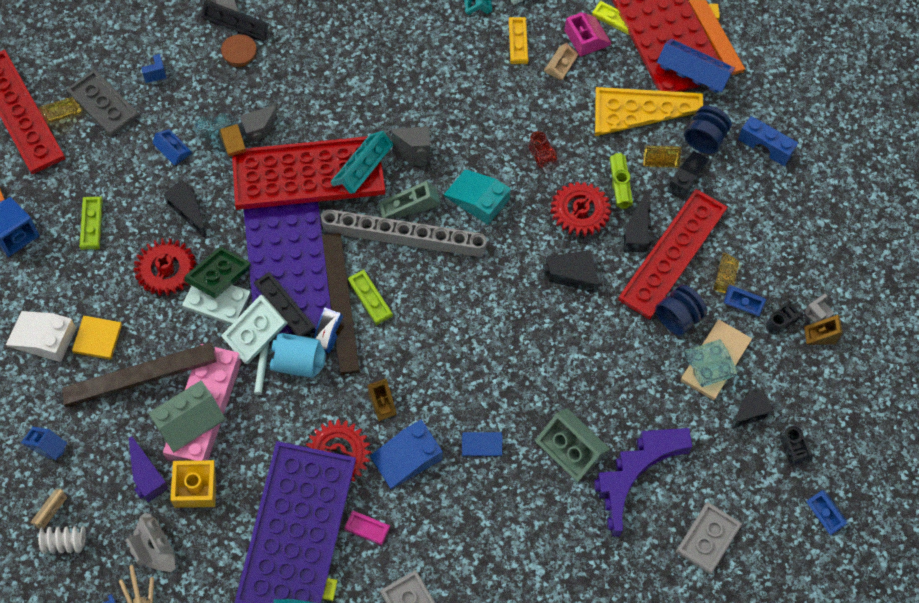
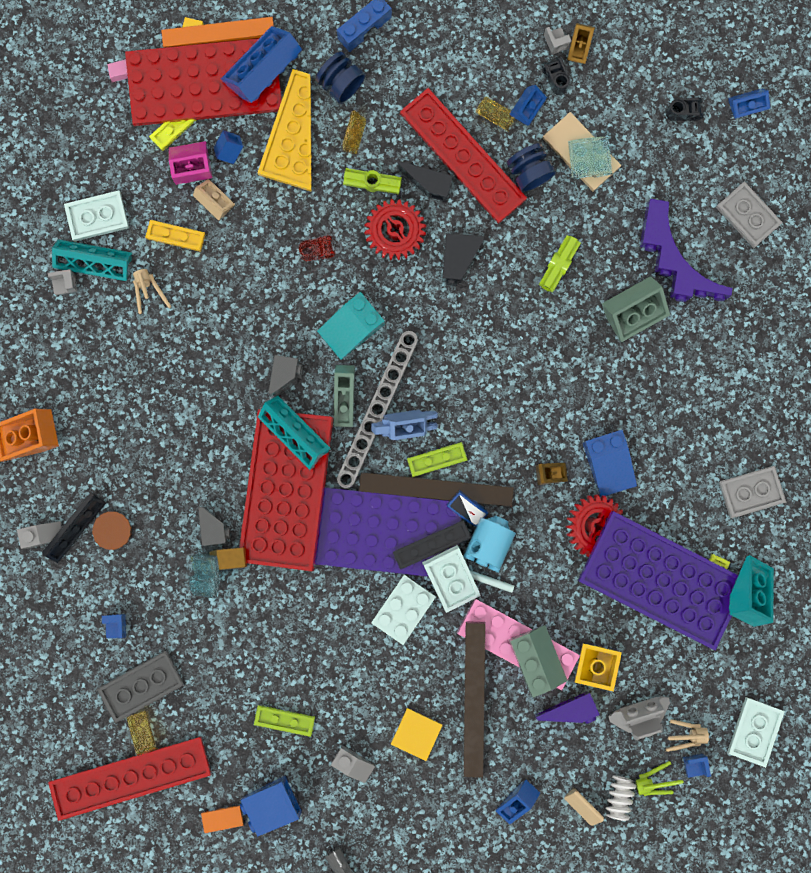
camera: 75 degrees left, 20 degrees up
(42, 334) = (401, 789): white slope -> none
(58, 285) = (352, 764): none -> light grey slope
(79, 565) = (646, 786): none -> lime plant
(163, 257) = (371, 664): red gear -> none
(171, 146) = (213, 623): blue slope -> none
(183, 202) = (288, 621): black slope -> none
(217, 272) = (379, 603): dark green plate -> none
(367, 528) = (669, 516): dark pink tile -> none
(395, 256) = (405, 424): none -> medium blue hinge
(469, 23) = (143, 280): none -> tan plant
(482, 444) = (615, 391): blue slope -> none
(595, 362) = (559, 263): none -> lime piece
(612, 60) = (228, 147): none -> blue panel
(687, 175) = (380, 113): black slope -> none
(753, 409) = (640, 136): black slope -> none

